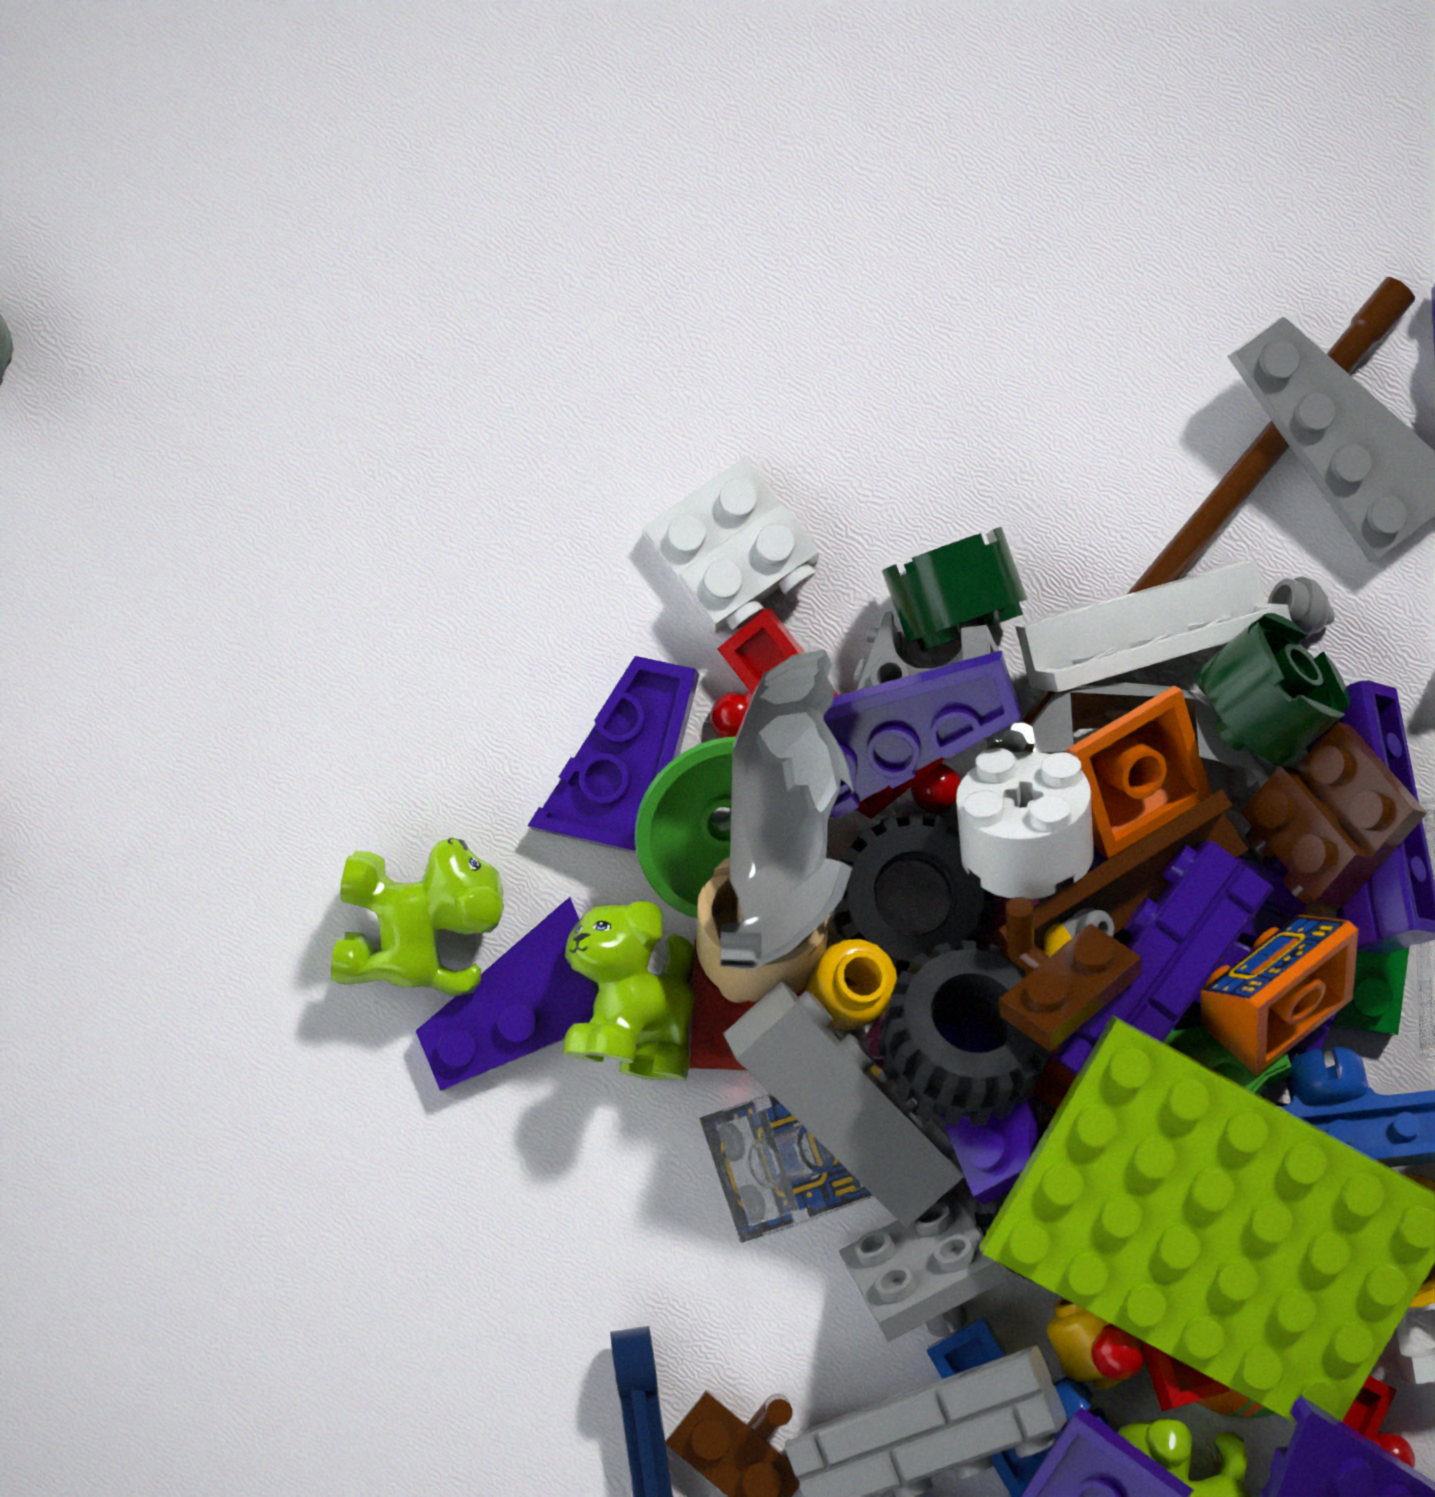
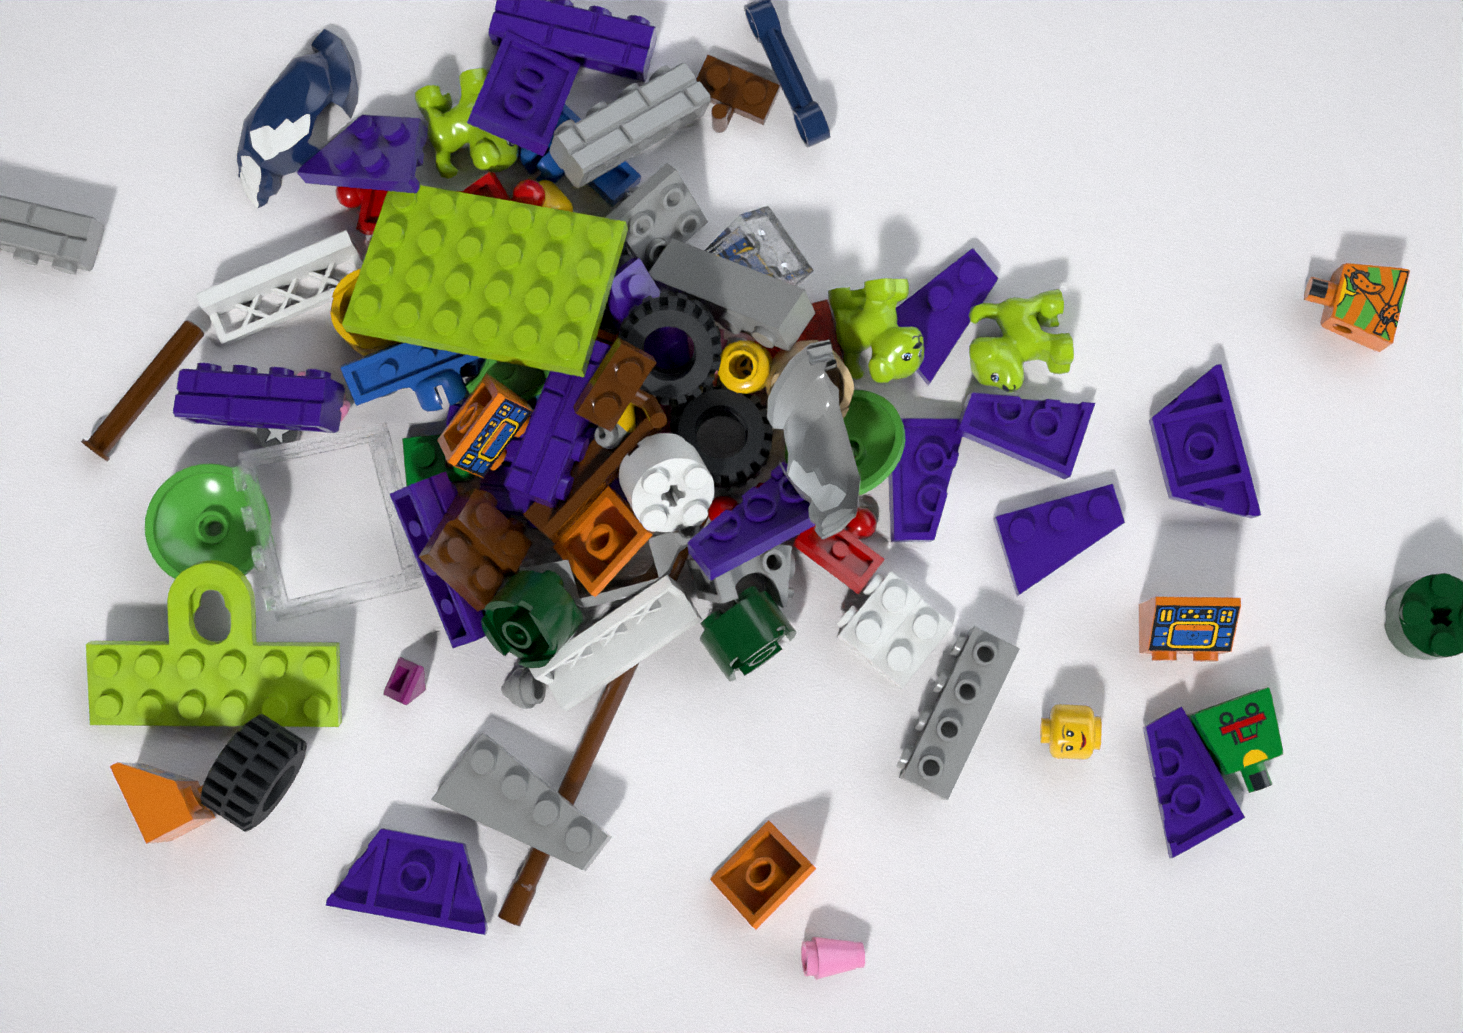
camera: 170 degrees right, 0 degrees up
(188, 684) = (1204, 450): none -> dark purple wing
(276, 255) = (1241, 736): none -> green torso
(303, 425) = (1188, 627): none -> slope
(374, 211) = (1187, 784): none -> dark purple wing
(444, 782) = (1032, 431): none -> dark purple wing
(448, 622) = (1054, 532): none -> dark purple wing
(519, 324) = (1071, 731): none -> yellow head
(674, 398) = (958, 713): none -> light grey brick
(954, 115) = (830, 957): none -> bright pink cone
(1019, 247) = (762, 874): none -> orange slope

